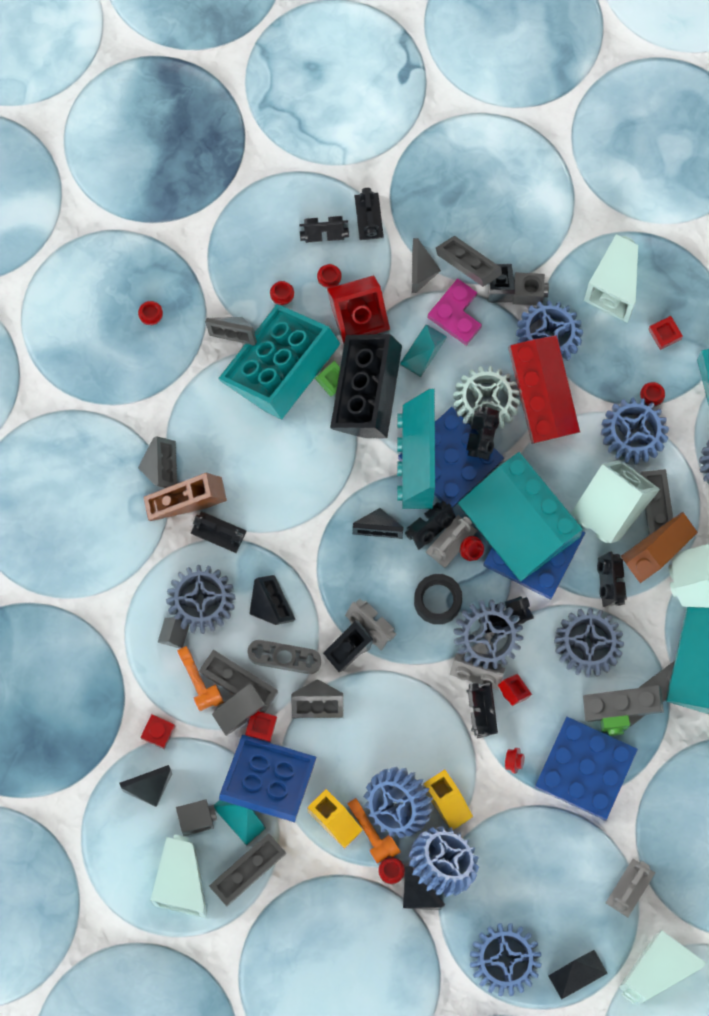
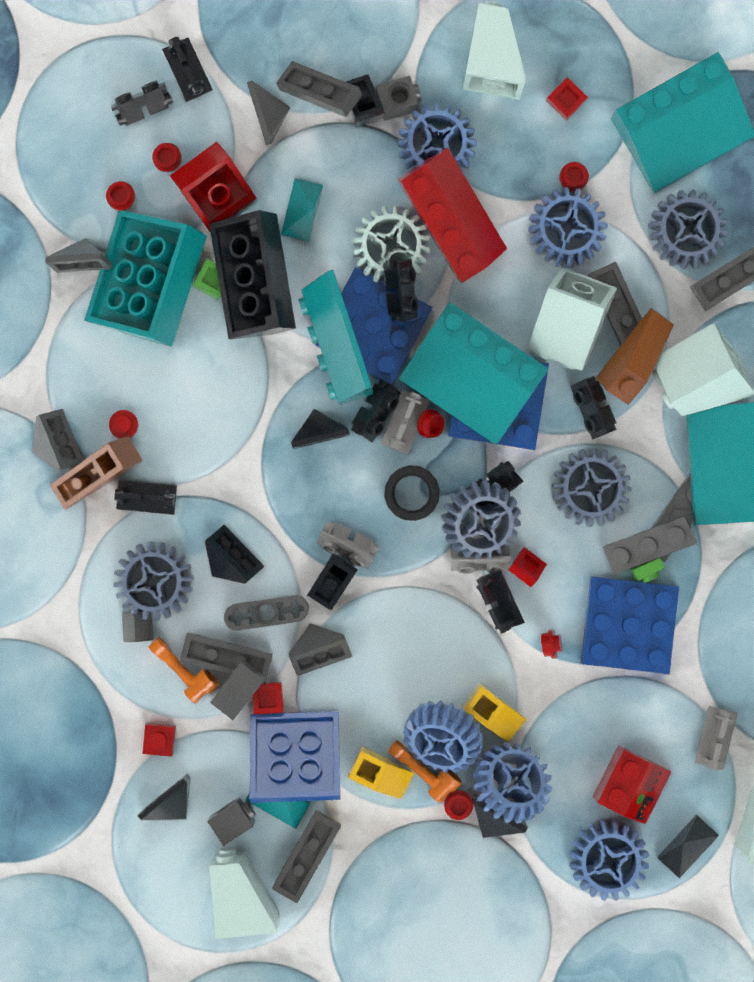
camera: 15 degrees left, 15 degrees up
(221, 467) = (123, 424): none -> red plate
(450, 312) = (316, 152): dark pink plate -> none
(546, 903) = (631, 785): none -> red slope

